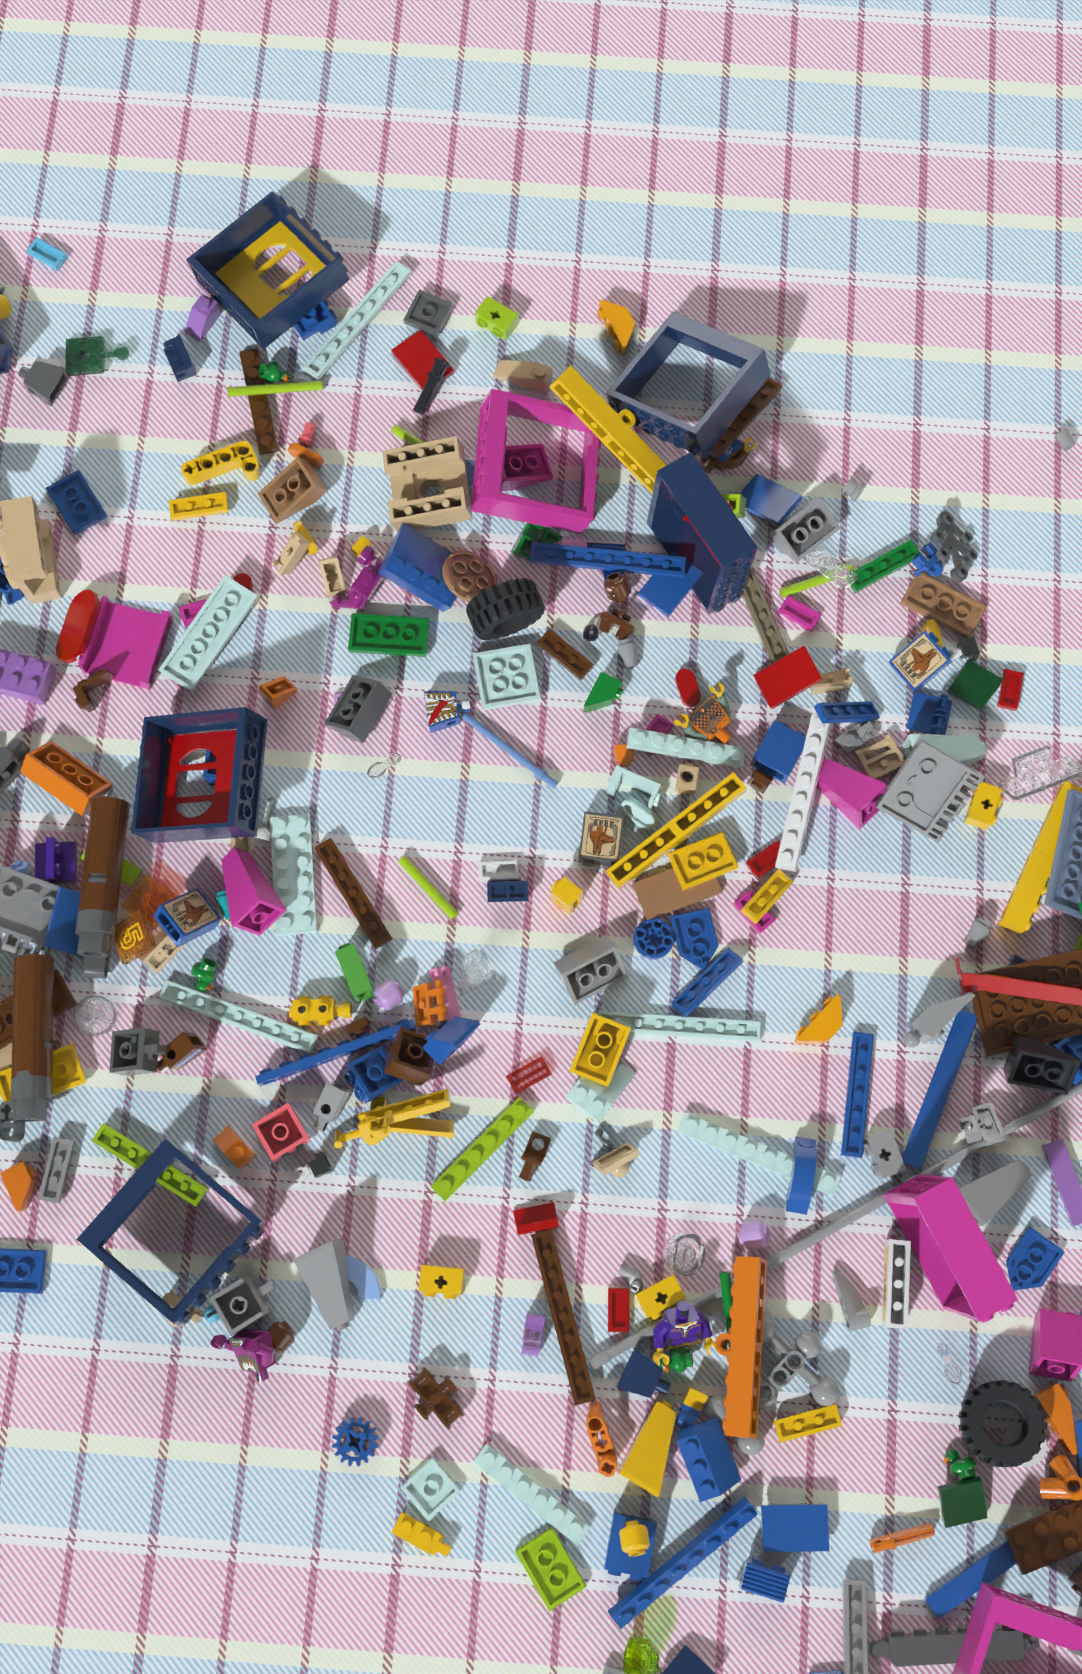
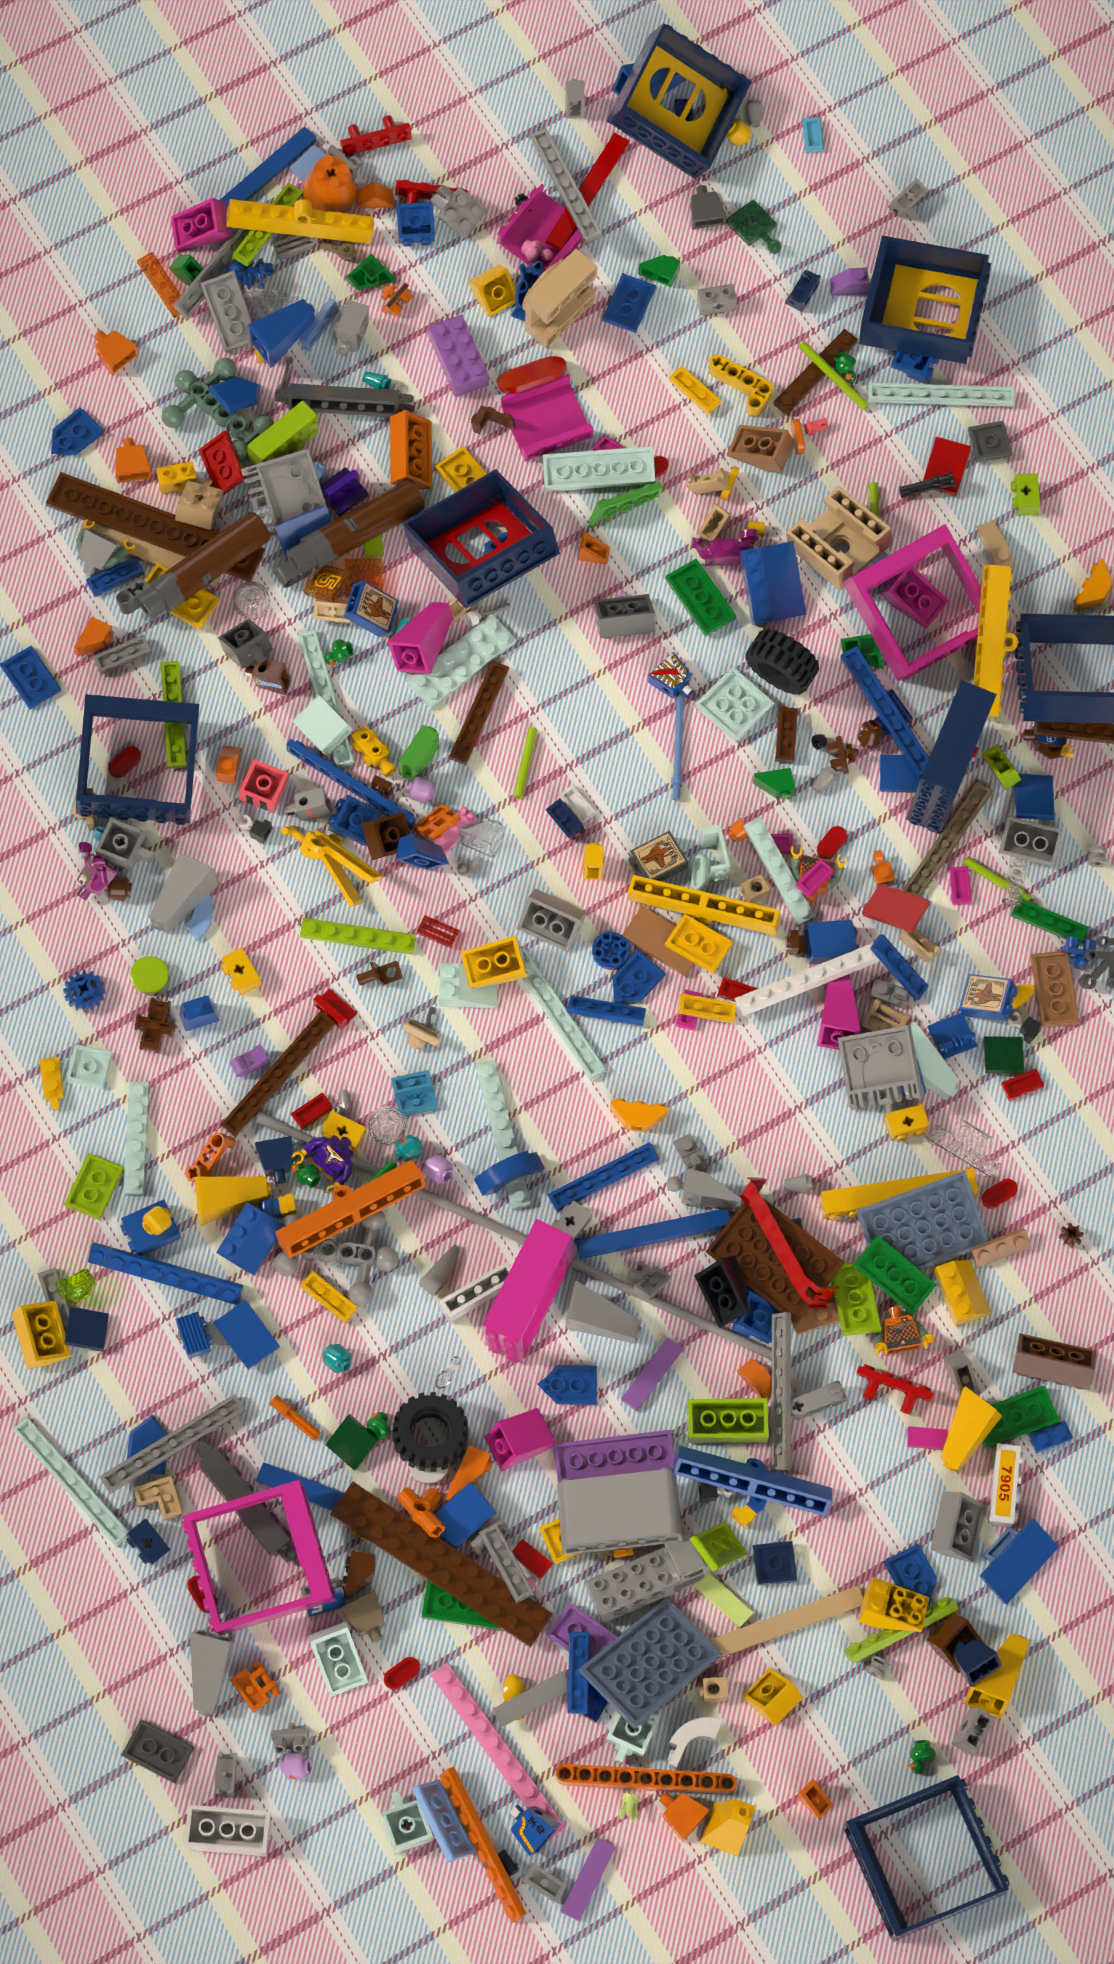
camera: 50 degrees right, 5 degrees down
(68, 455) = (660, 269): none -> green slope
(117, 748) = (460, 469): none -> yellow tile
(132, 430) = (716, 299): none -> light grey brick
(160, 1241) = (124, 762): none -> red tile
(165, 220) = (908, 197): none -> light grey hinge
(255, 635) = (624, 502): none -> bright green wing
(263, 1039) = (322, 725): none -> light aqua panel
(379, 768) = (590, 664): clear piece -> none
(383, 1367) = (149, 975): none -> lime tile
(455, 1348) = (198, 1013): none -> blue torso
(467, 574) = (793, 617): medium nougat tile -> none
(492, 1004) = (470, 869): none -> light grey arm
(666, 1205) = (414, 1093): none -> dark azure slope
(716, 723) = (815, 878): none -> dark pink tile
(717, 1249) = (408, 1148): none -> teal head
(743, 665) = (881, 871): none -> orange plate
(872, 1458) = (337, 1358): none -> teal head
(887, 1005) = (690, 1153): none -> light grey hinge

